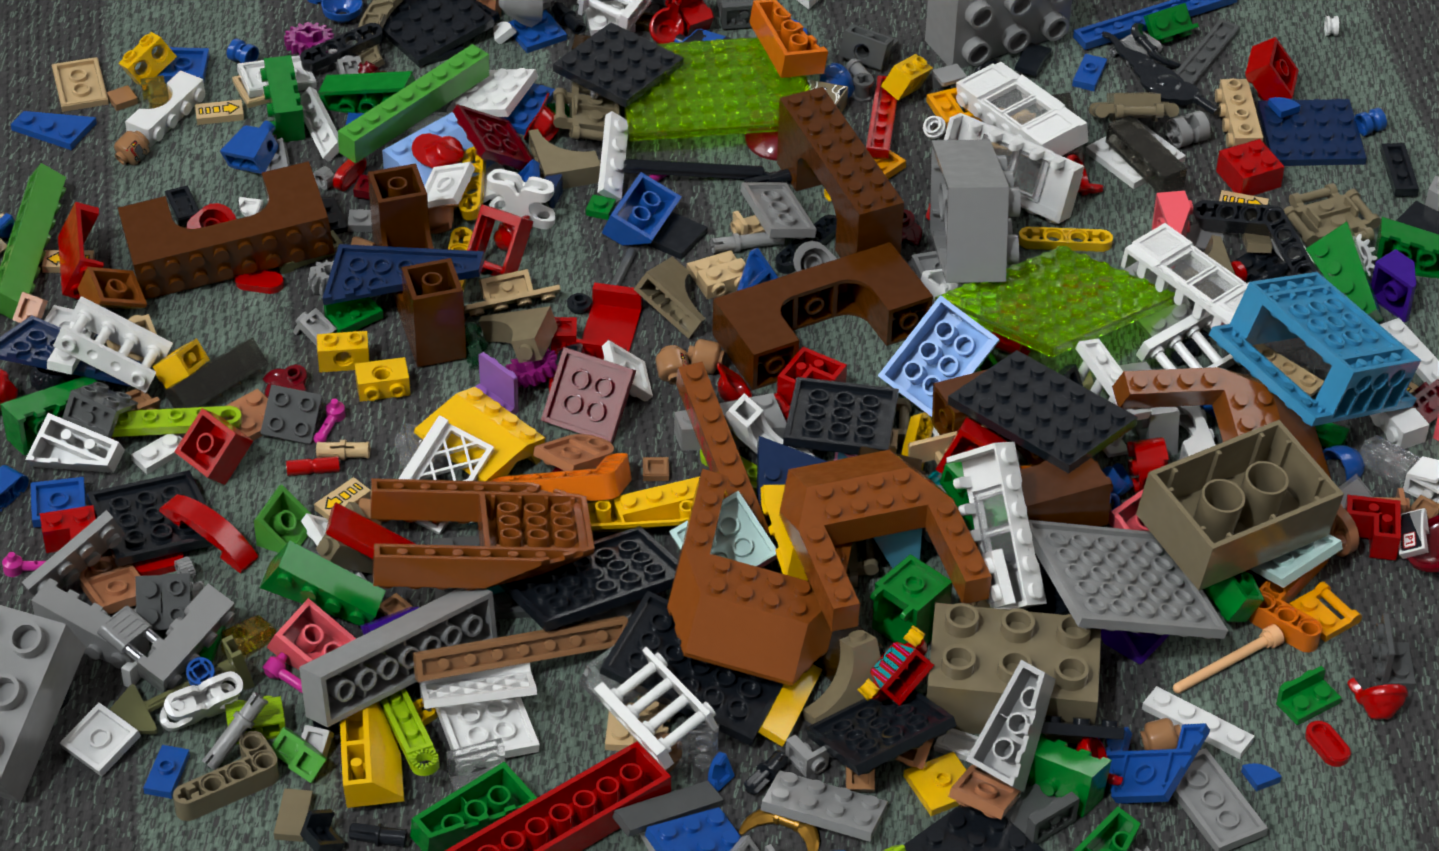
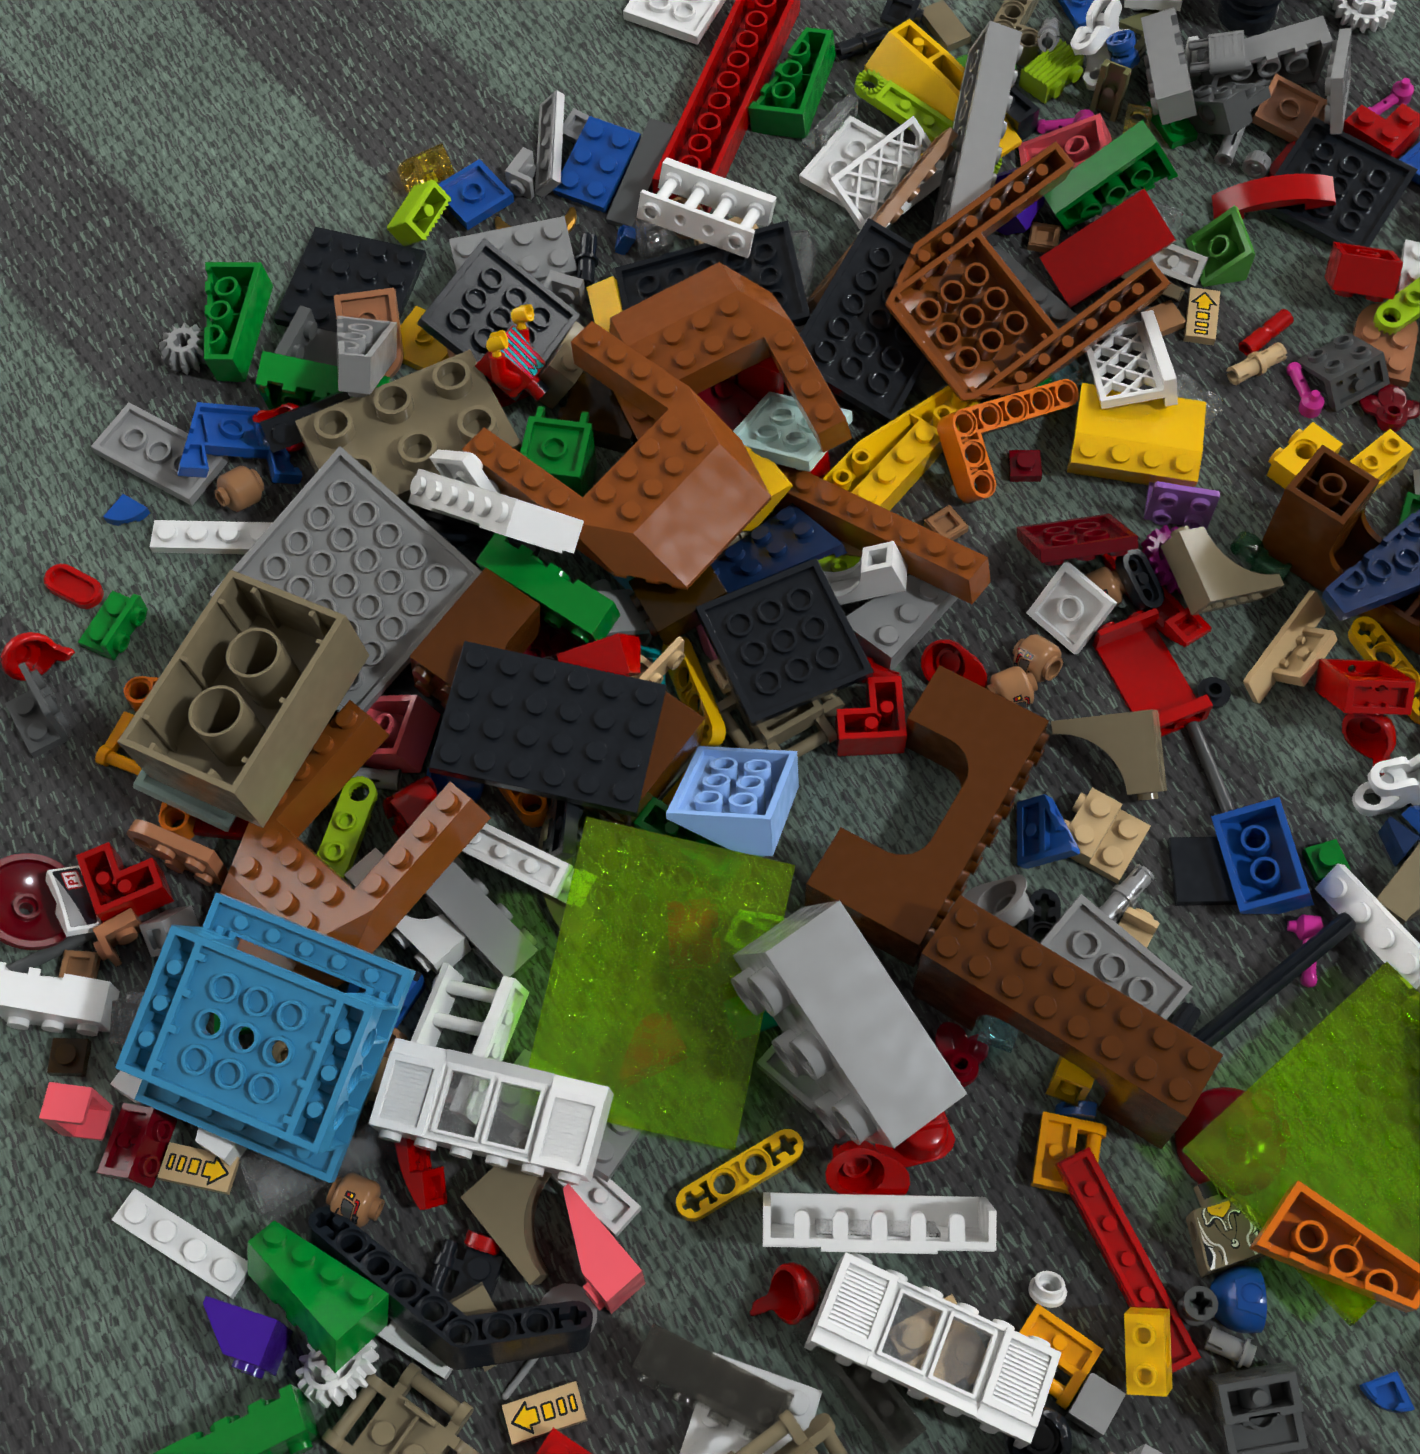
camera: 150 degrees right, 20 degrees up
(574, 452) = (1031, 474): nougat plate -> none

